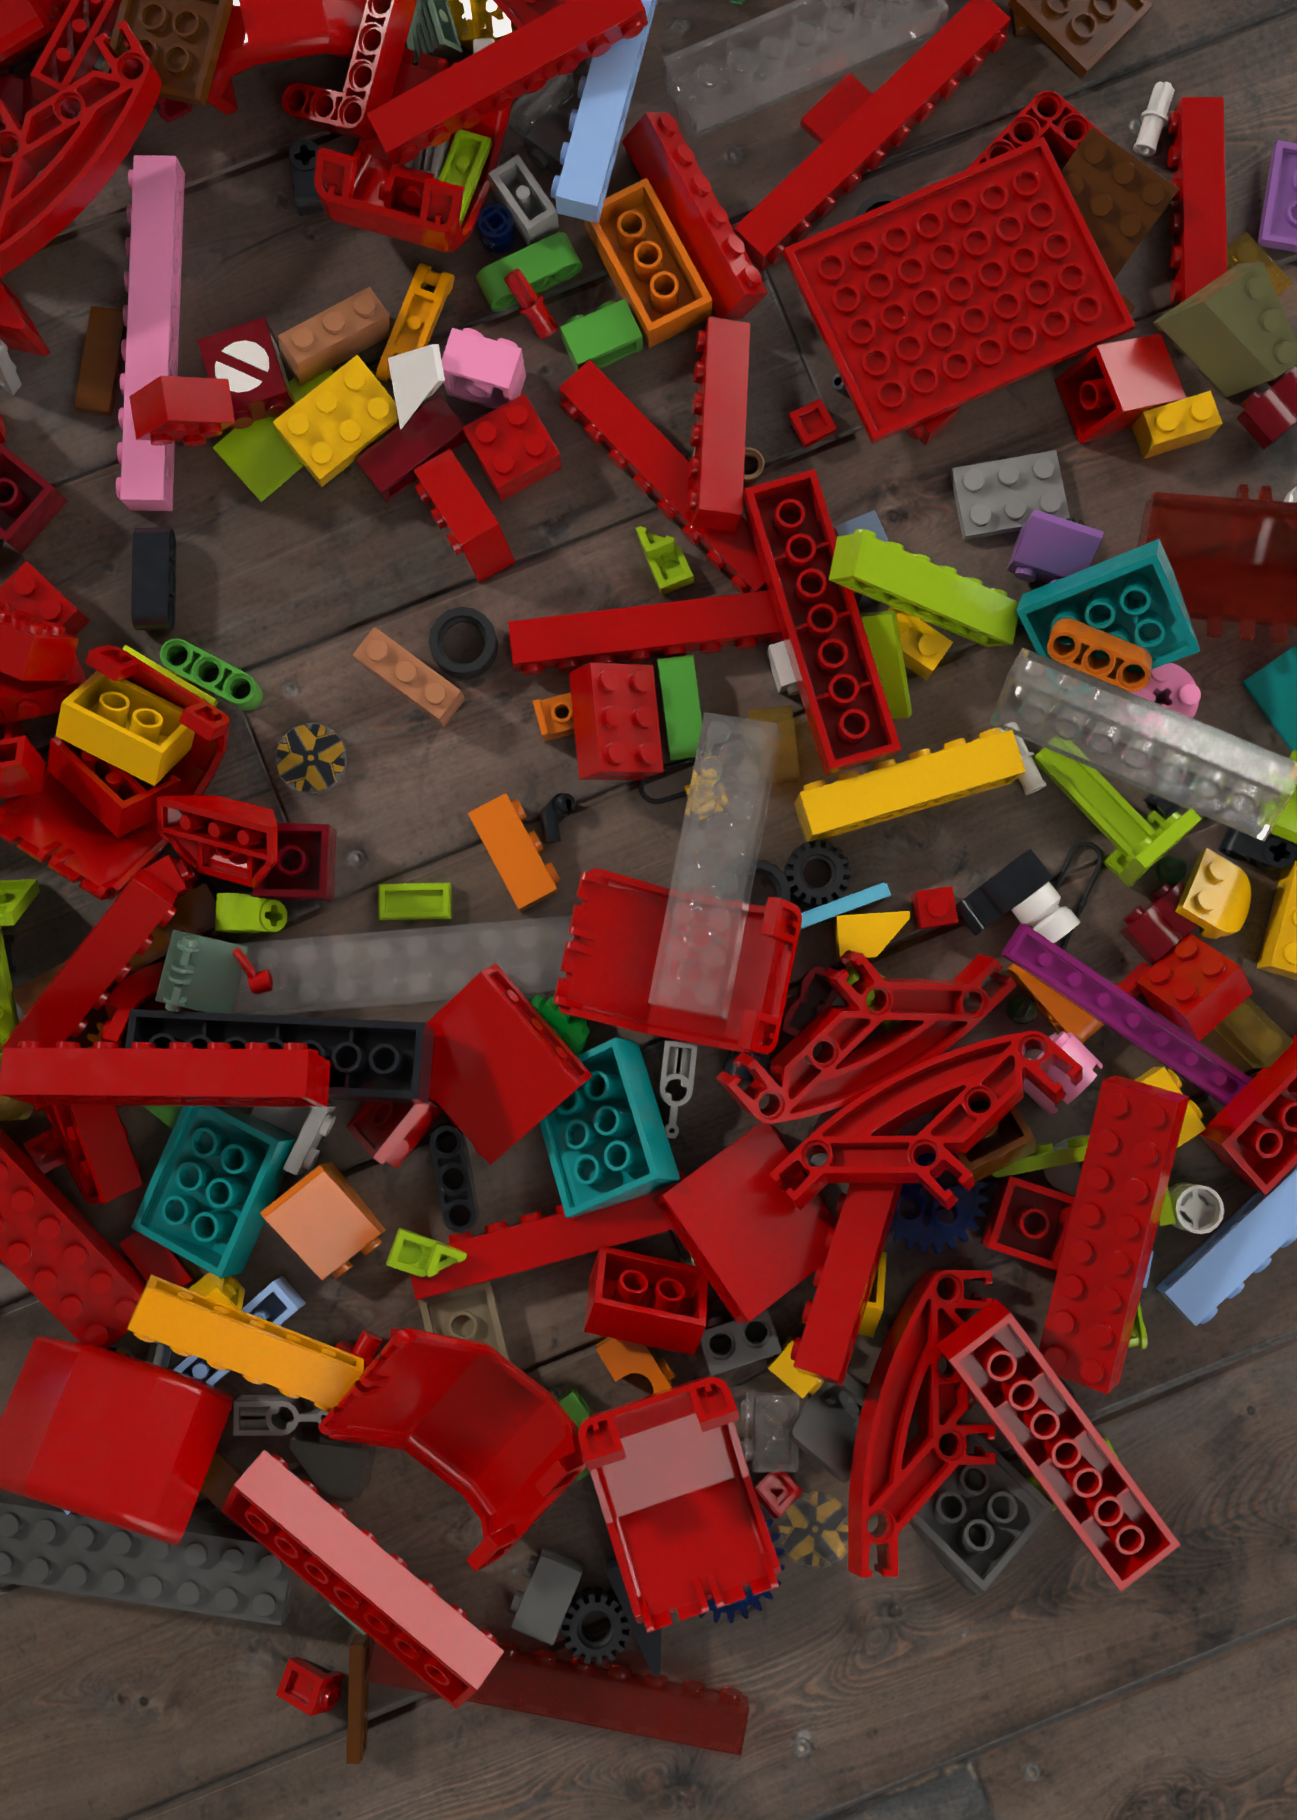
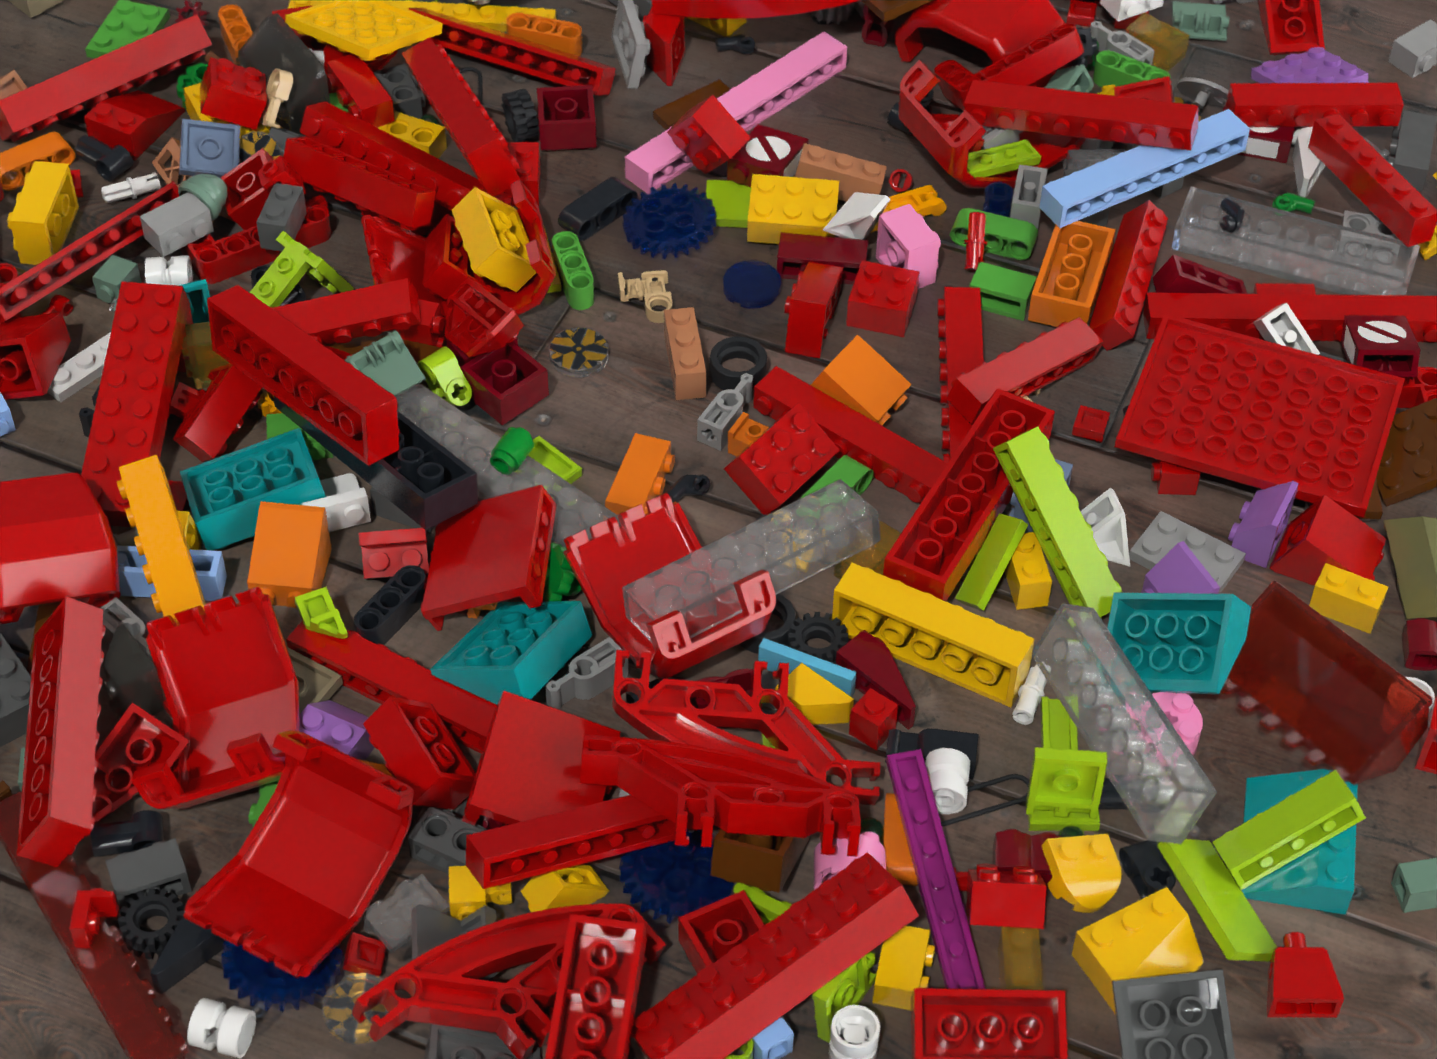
camera: 45 degrees right, 35 degrees down
(67, 238) = (738, 43): none -> black arm
(208, 514) = (669, 220): none -> clear blue gear
(260, 981) = (408, 399): red hand -> none
(296, 627) = (653, 292): none -> tan piece
(377, 534) = (752, 284): none -> clear blue tile
(392, 278) = (895, 179): none -> red hinge
(403, 948) = (511, 450): none -> green brick
(419, 1517) = (132, 745): none -> red wedge
(489, 1584) = (127, 836): none -> black piece
(518, 713) = (723, 413): none -> light grey piece
(544, 1329) = (337, 727): none -> medium lavender slope
(565, 1698) = (87, 911): none -> red bracket
(591, 572) = (863, 381): none -> orange slope
(665, 561) = (915, 420): lime slope -> none
(740, 63) = (1234, 216): none -> black arm
(747, 1656) = (216, 1026): none -> white wheel
(759, 170) = (1186, 276): none -> dark red slope
(888, 859) = (877, 671): none -> dark red slope
(895, 170) = (1284, 328): none -> white brick
(931, 533) = (1109, 526): none -> white slope
(985, 109) = (1381, 344): none -> dark red brick
(1052, 406) = (1263, 522): none -> medium lavender slope
(1110, 669) = (1152, 657): orange beam -> none

